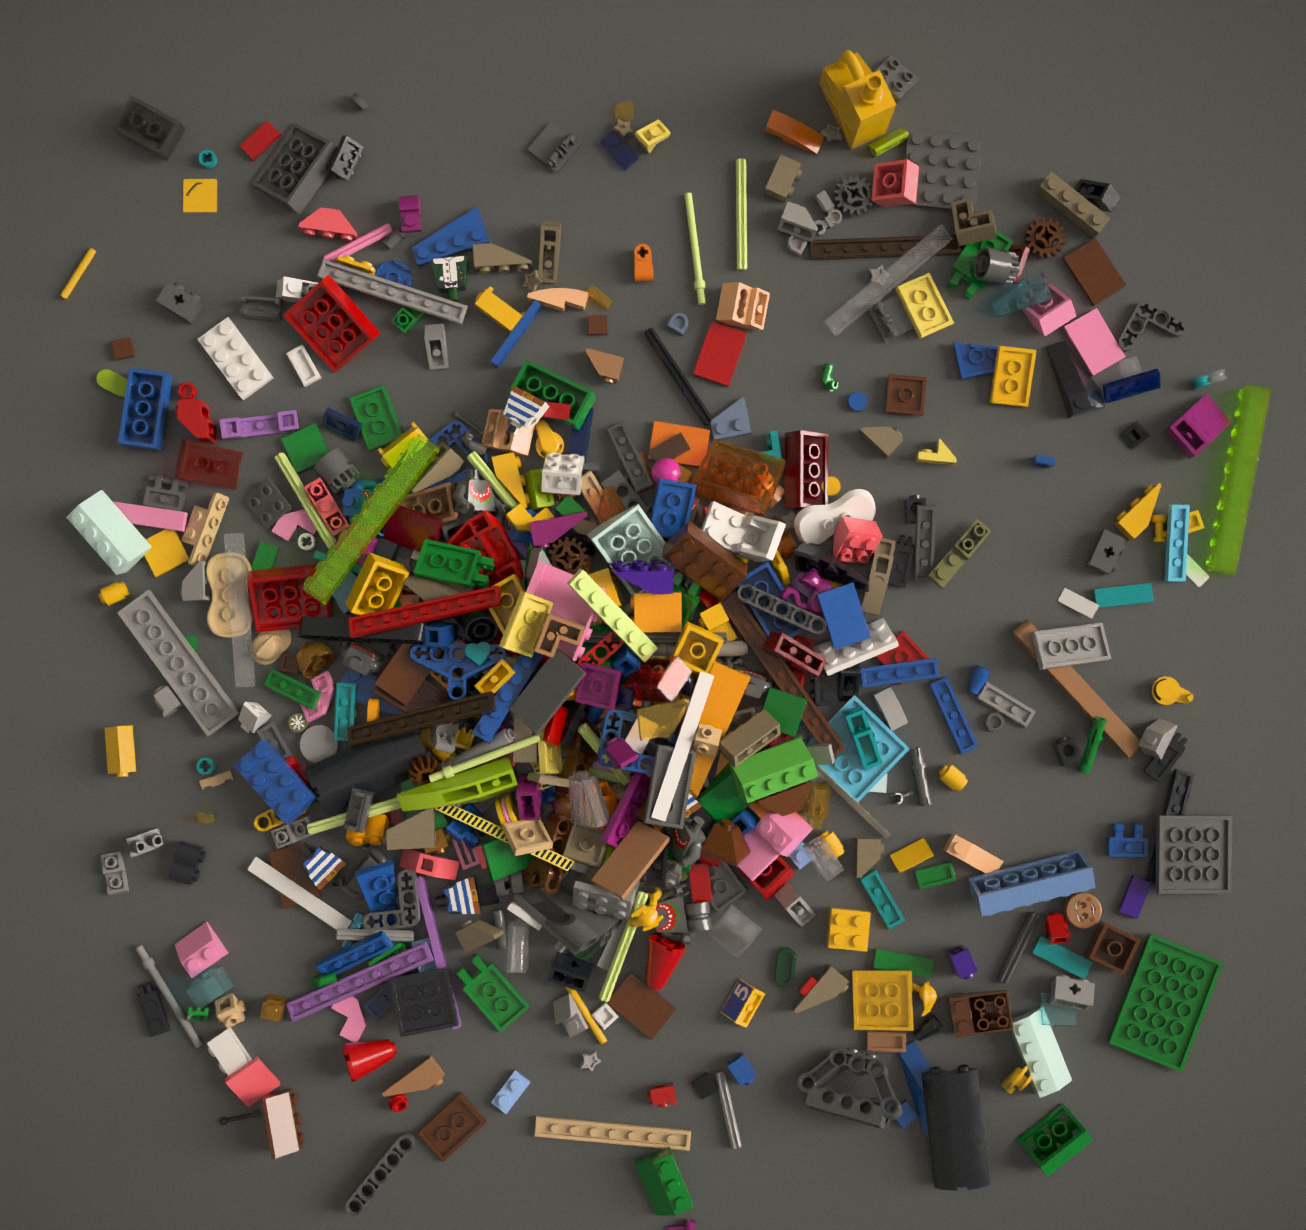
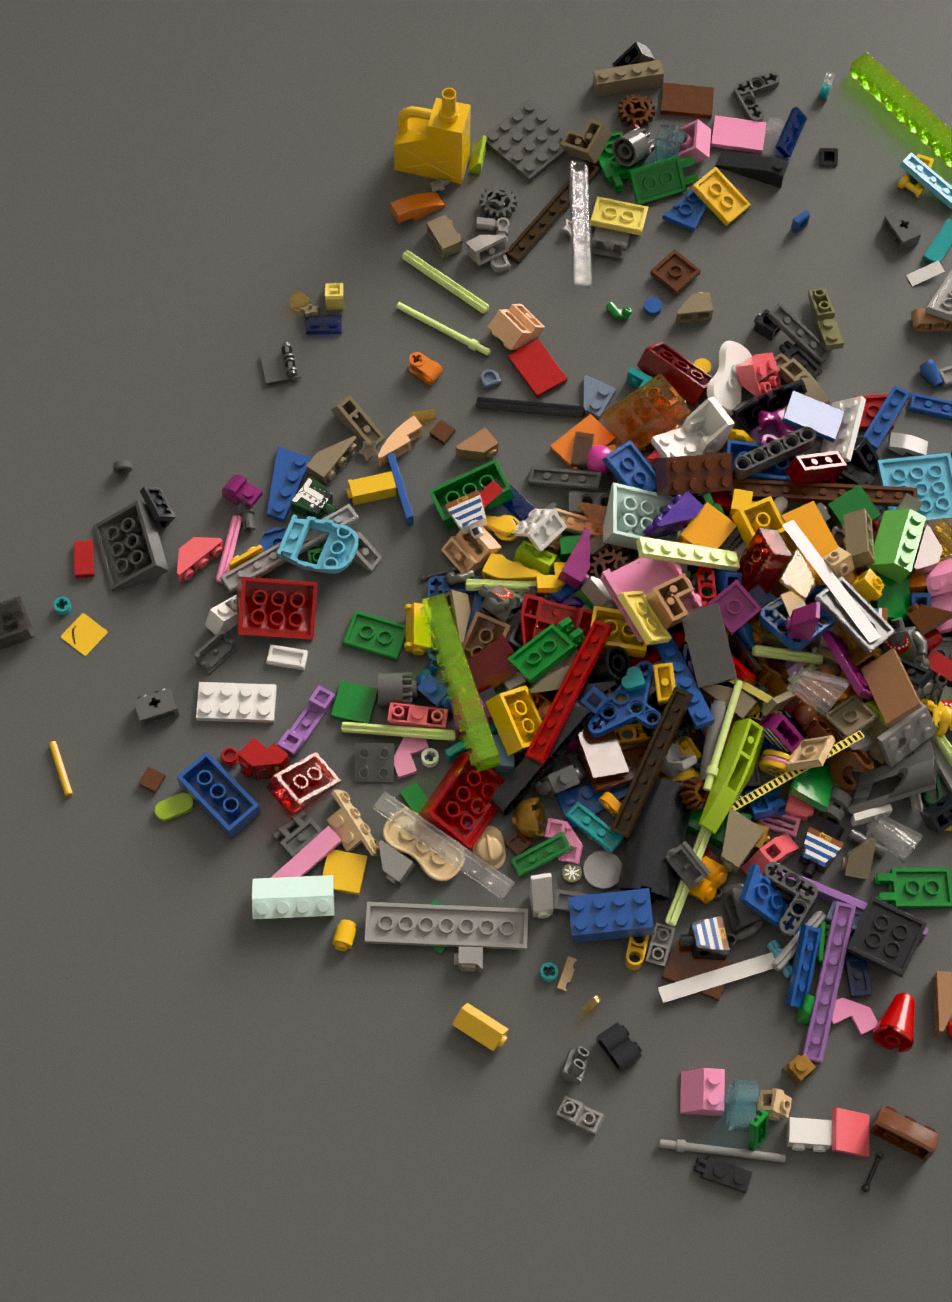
camera: 50 degrees left, 20 degrees down
(341, 424) = (359, 661): dark blue plate -> none
(415, 331) = (337, 551): none -> medium azure slope
(711, 776) = (868, 585): none -> yellow brick
(862, 737) = (916, 474): teal slope -> none
(895, 183) = (514, 167): coral brick -> none
(941, 456) = (739, 281): light yellow slope -> none
(989, 313) = (661, 179): none -> green tile
(1139, 515) = (891, 190): yellow slope -> none
(1197, 426) = (856, 115): magenta slope -> none

